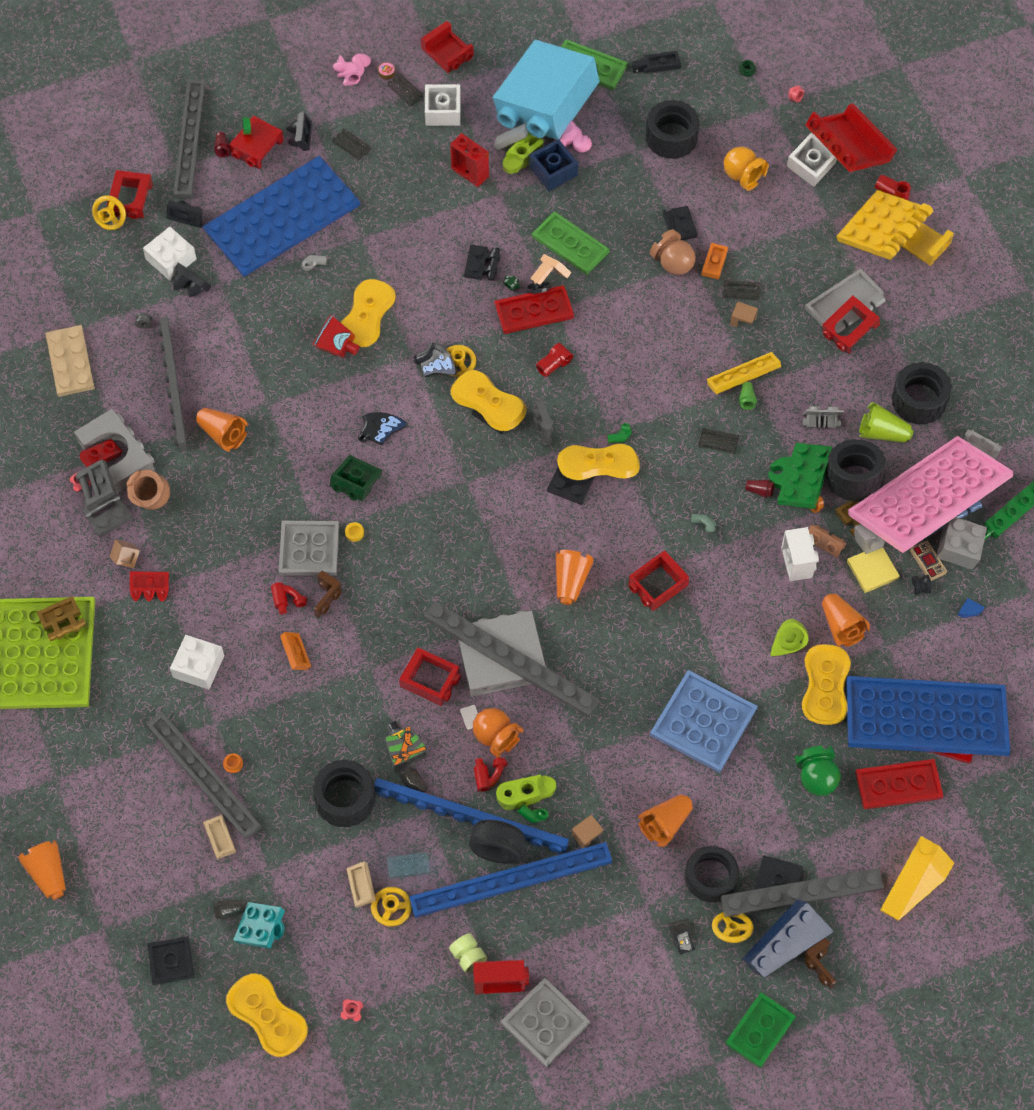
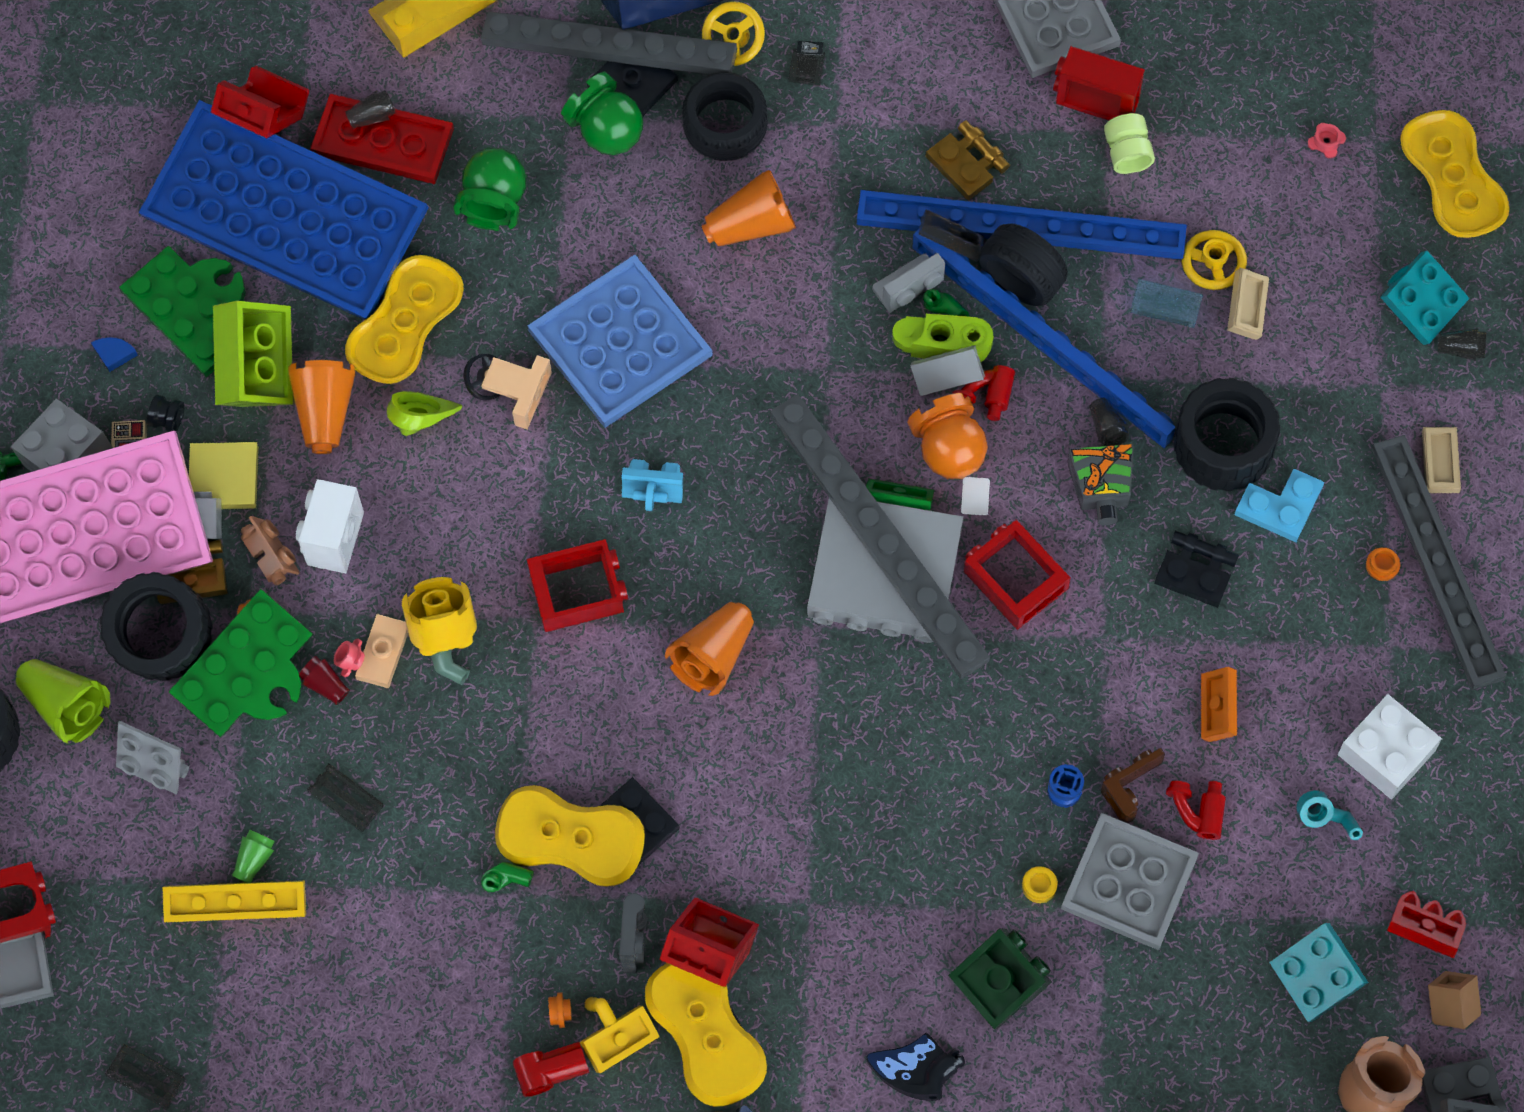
camera: 155 degrees left, 5 degrees up
(197, 538) = (1318, 972): none -> teal plate
(225, 618) = (1325, 812): none -> teal plate
(295, 772) = (1284, 513): none -> medium azure plate
(334, 716) = (1192, 577): none -> black plate
(359, 583) = (1066, 793): none -> blue wheel
(503, 413) = (723, 943): none -> red window
(511, 694) = (901, 494): none -> green plate
(514, 770) = (947, 370): none -> light grey tile
(529, 382) = (619, 1035): none -> yellow plate
(560, 815) = (910, 281): none -> light grey bracket
(561, 904) = (960, 166): none -> pearl gold plate
(562, 844) = (951, 235): none -> clear smoke tile
(563, 385) = (559, 1010): none -> orange plate
(586, 831) = (878, 243): medium nougat panel -> none
(654, 647) = (652, 485): none -> medium azure hips
(715, 539) = (439, 616): none -> yellow brick
(740, 515) = (382, 651): none -> light nougat plate
(743, 313) = (172, 1011): medium nougat panel -> none
(749, 668) = (511, 381): none -> light nougat piece
(754, 501) = (349, 657): none -> coral plate
(776, 839) = (607, 118): none -> green tile
(894, 627) = (252, 354): none -> lime slope
(911, 790) = (371, 110): none -> clear smoke cone
(944, 649) = (182, 299): none -> green plate
(976, 766) = (262, 104): none -> red panel

